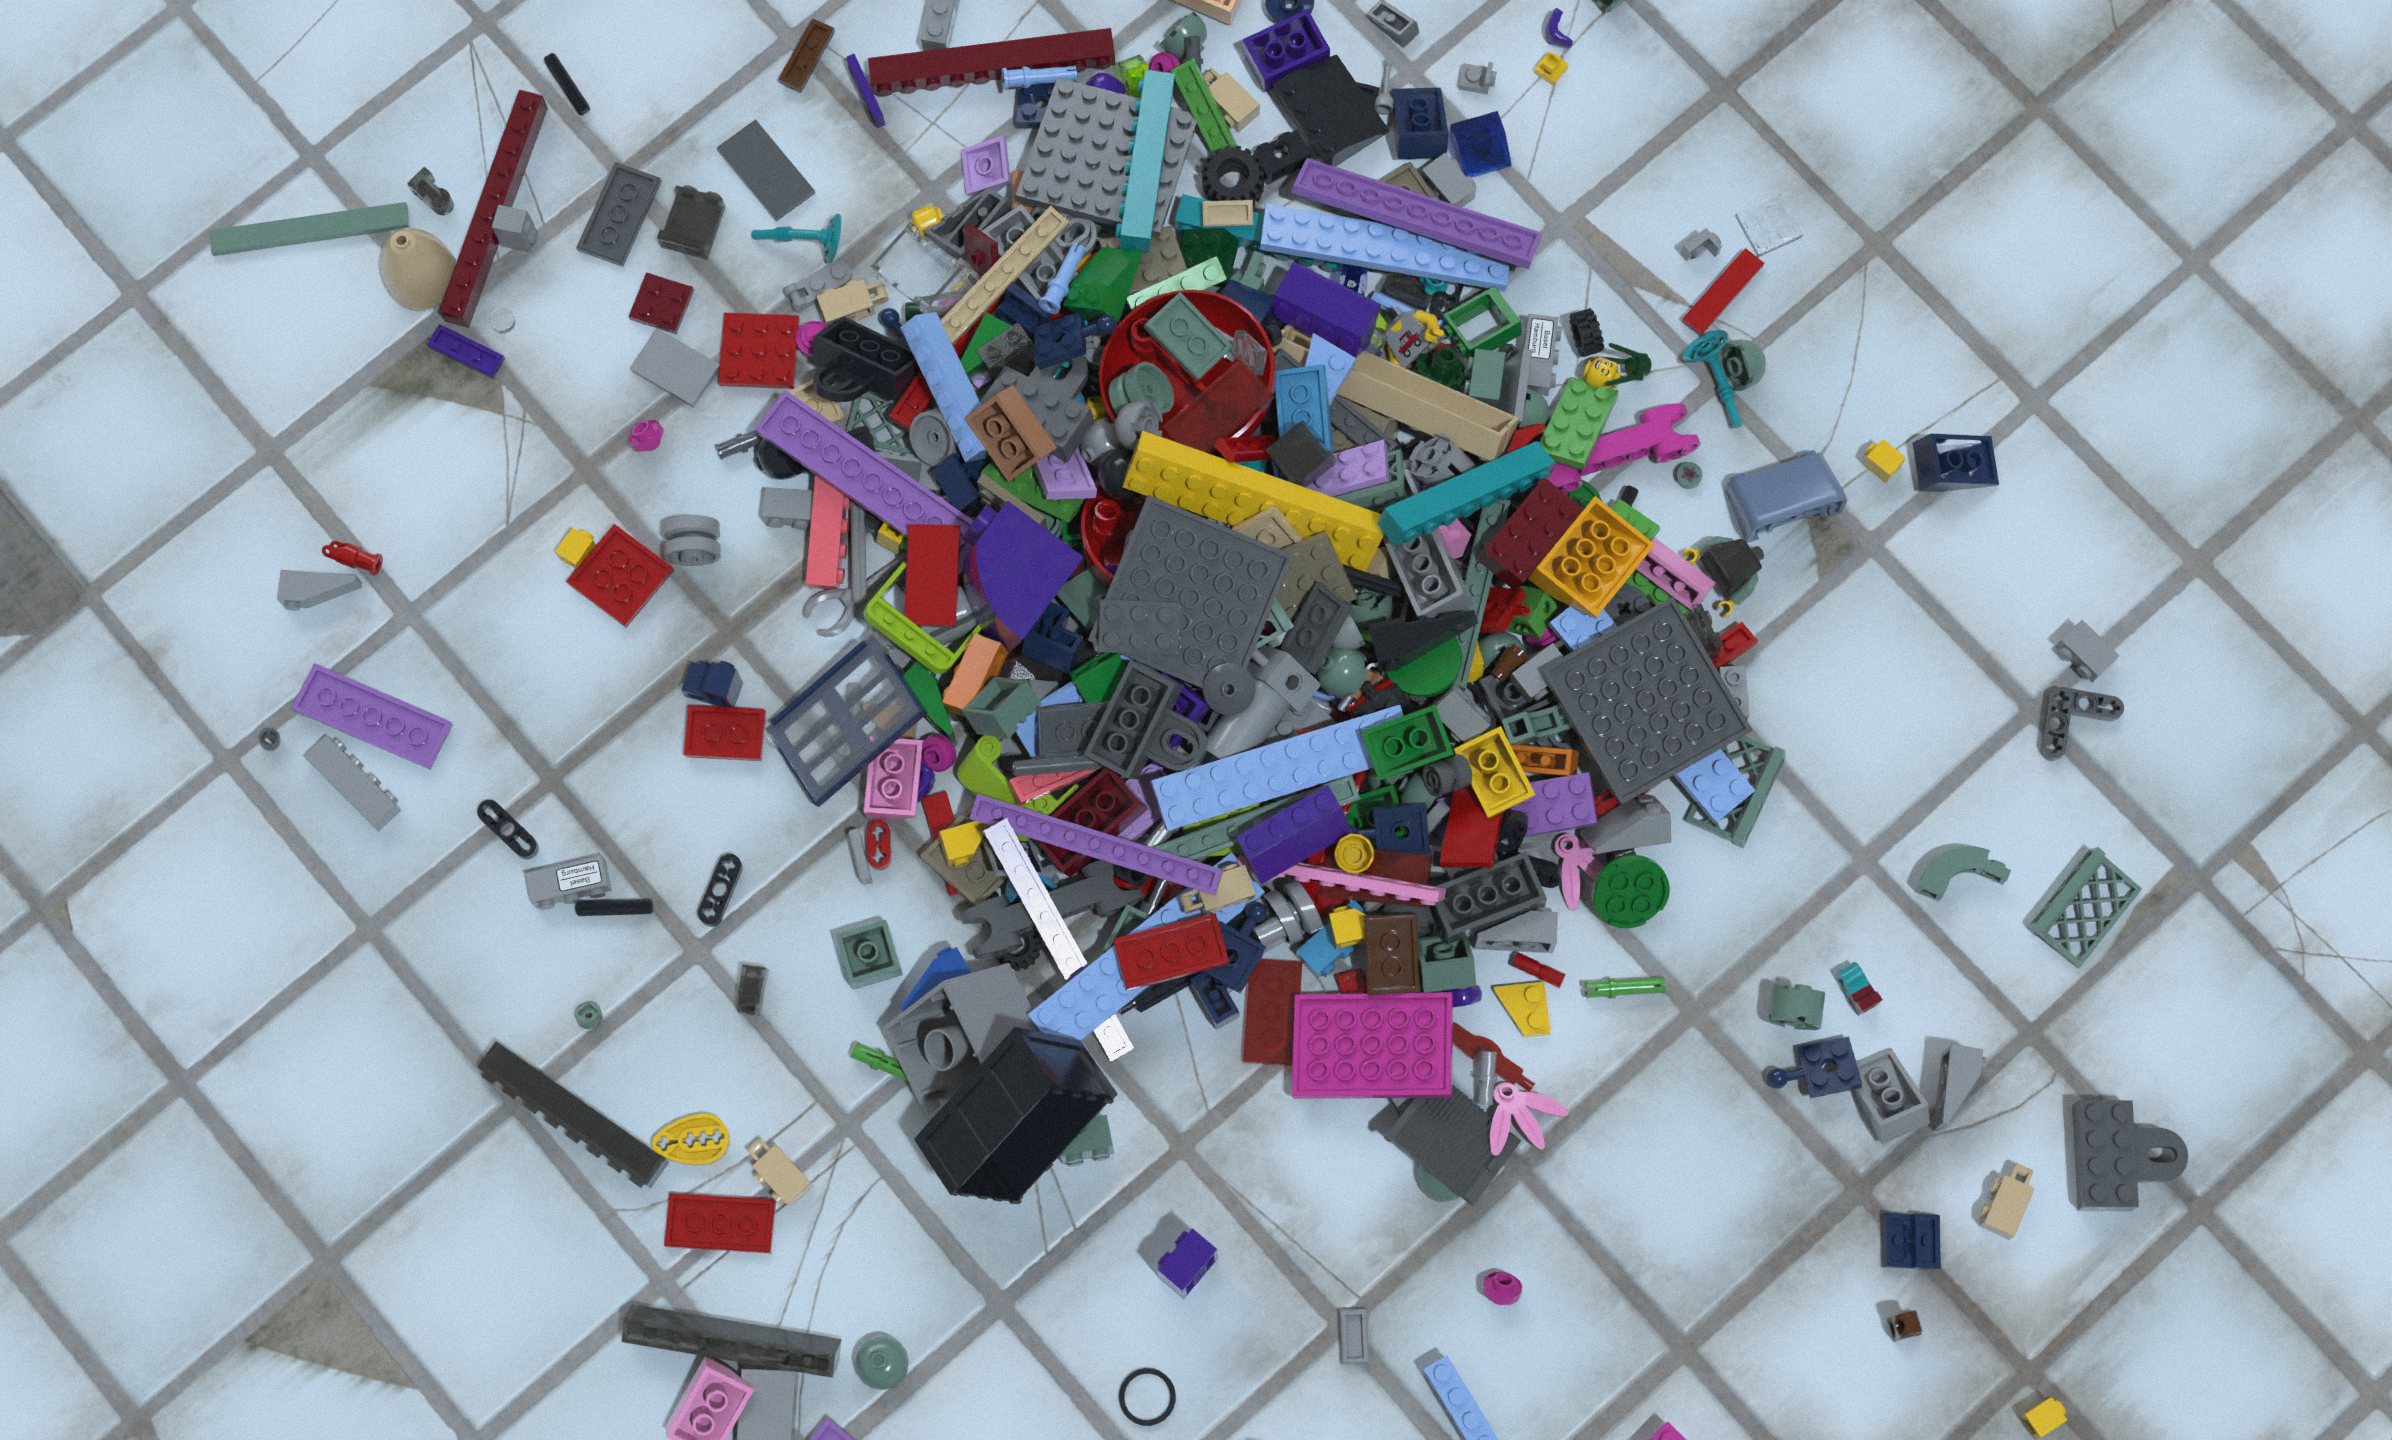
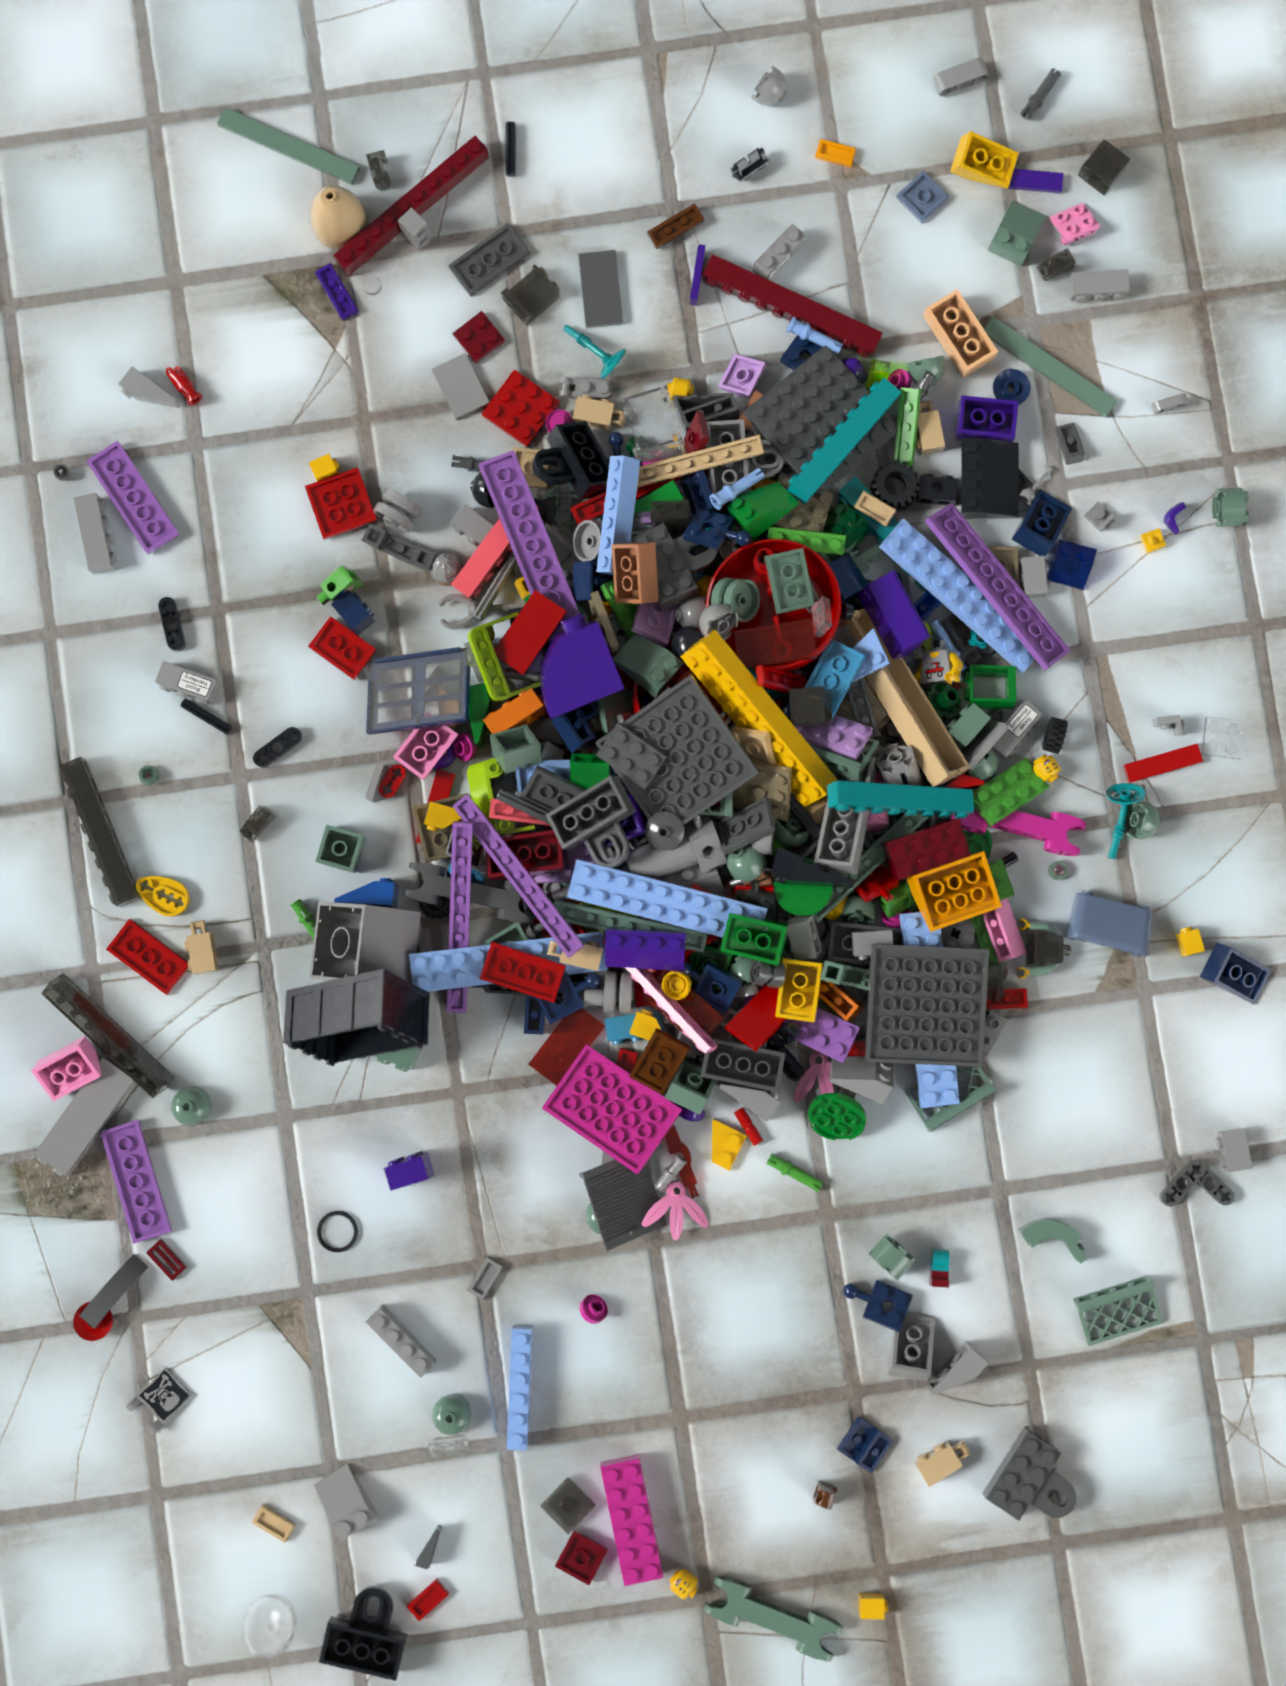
camera: 35 degrees right, 10 degrees up
(646, 436) = (413, 421): dark pink plate -> none
(675, 655) = (338, 583): none -> bright green torso
(719, 584) = (399, 548): none -> dark grey slope
(786, 572) = (445, 567): none -> light grey piece
(1092, 522) = (648, 664): none -> sand green slope
(1509, 662) = (858, 923): reddish brown cone -> none
(1637, 365) = (1072, 776): dark green plant -> none

